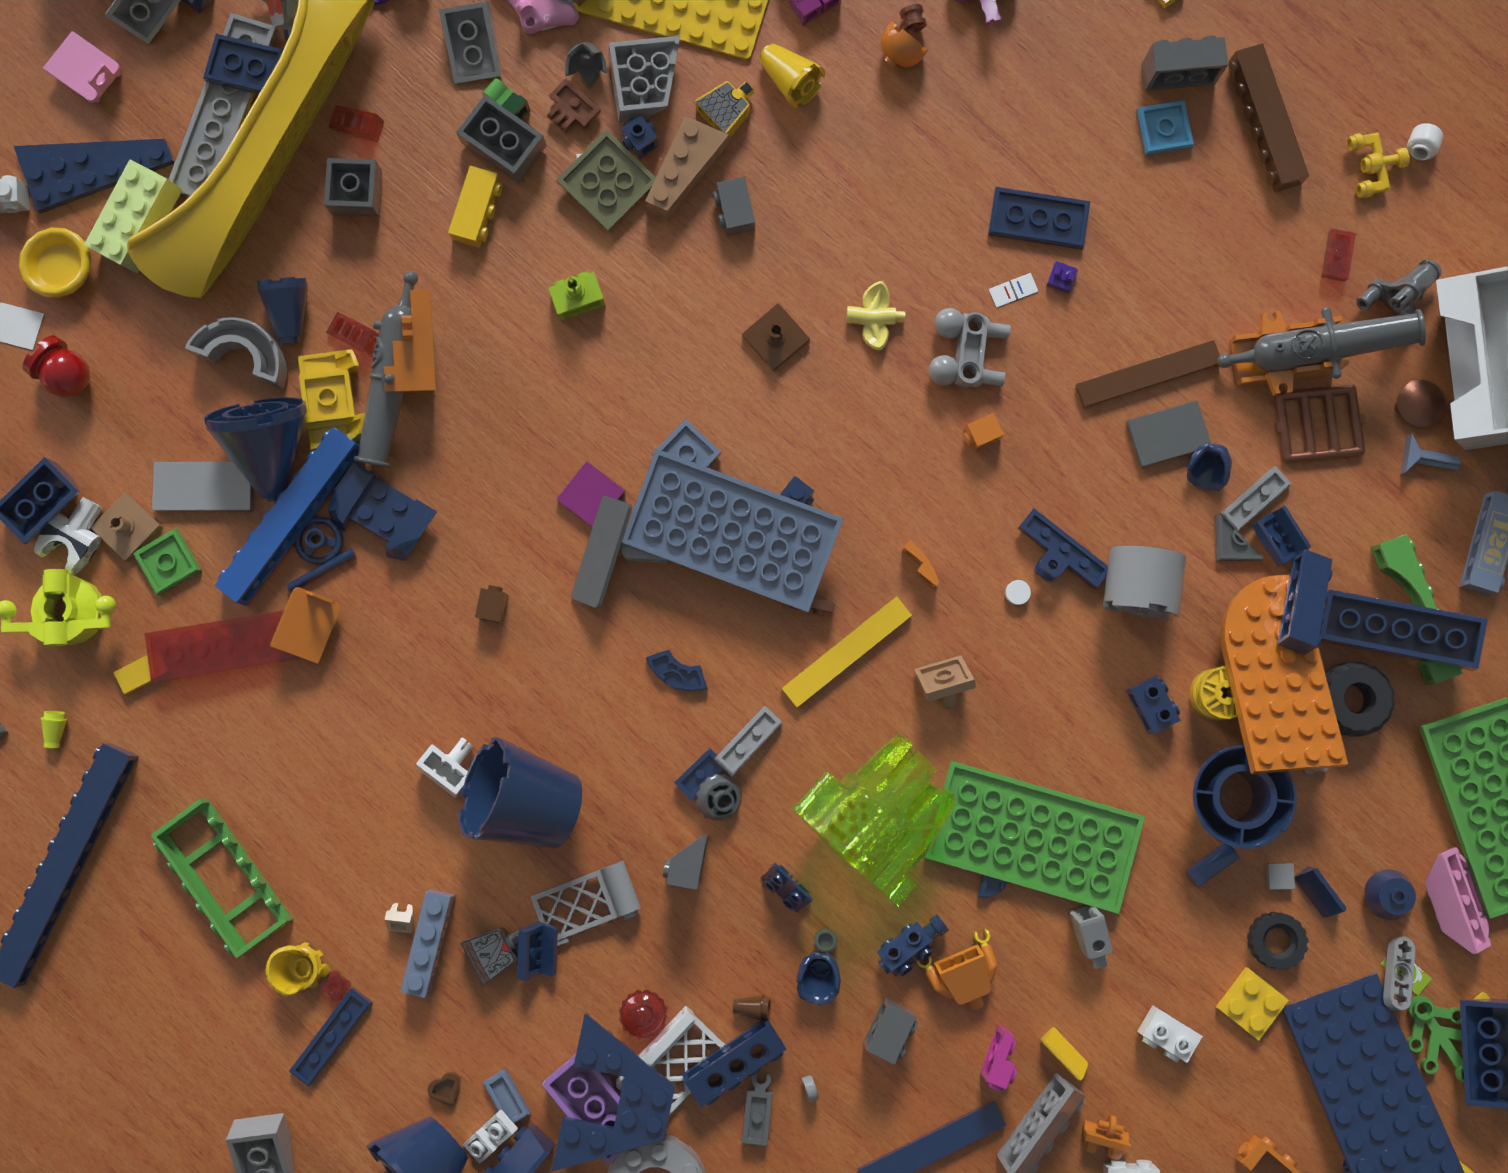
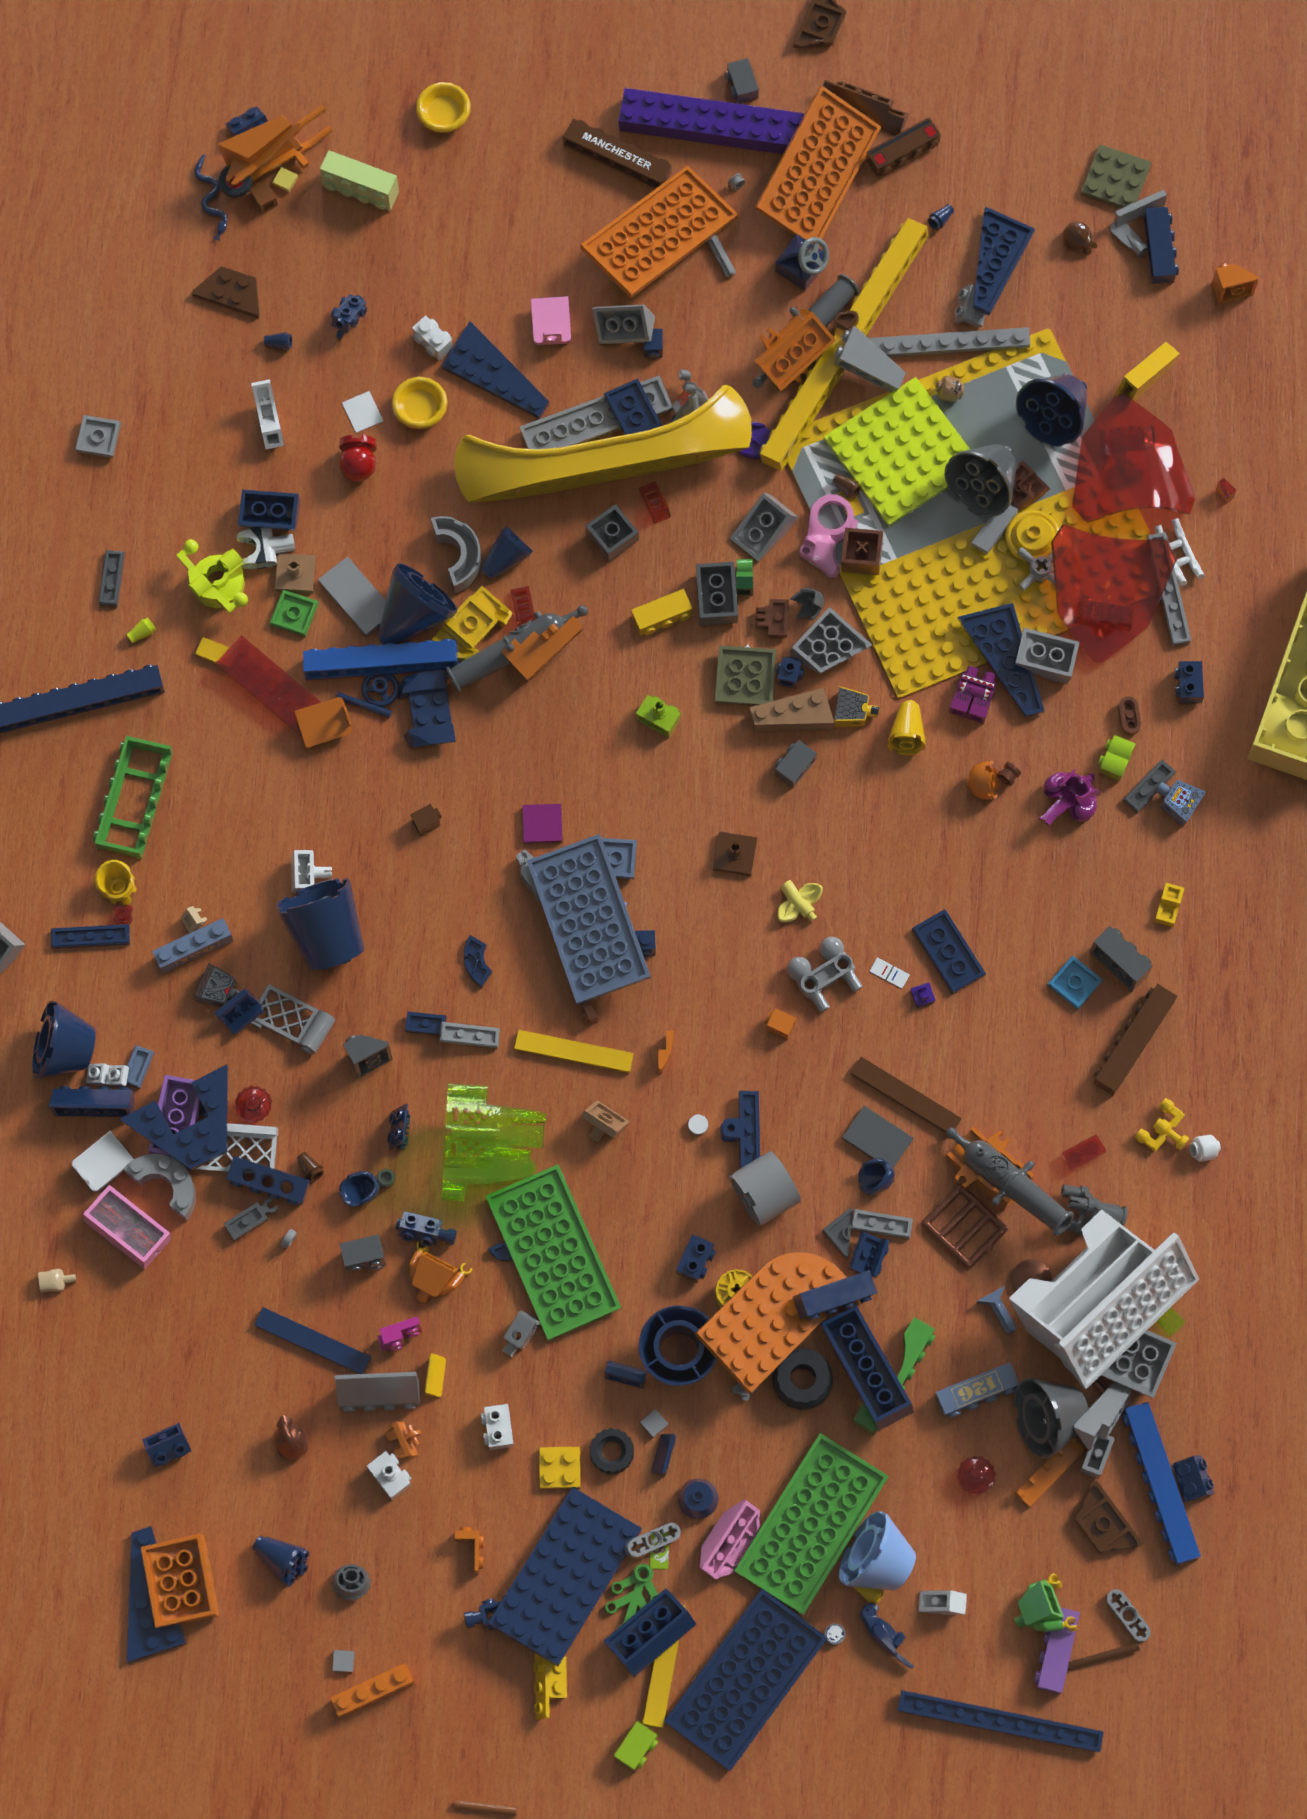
camera: 50 degrees right, 10 degrees down
(134, 205) = (490, 420): yellowish green brick -> none
(445, 1088) = (114, 1027): reddish brown tile -> none
(601, 551) = (512, 855): dark grey piece -> none
(718, 797) = (420, 1045): dark grey piece -> none

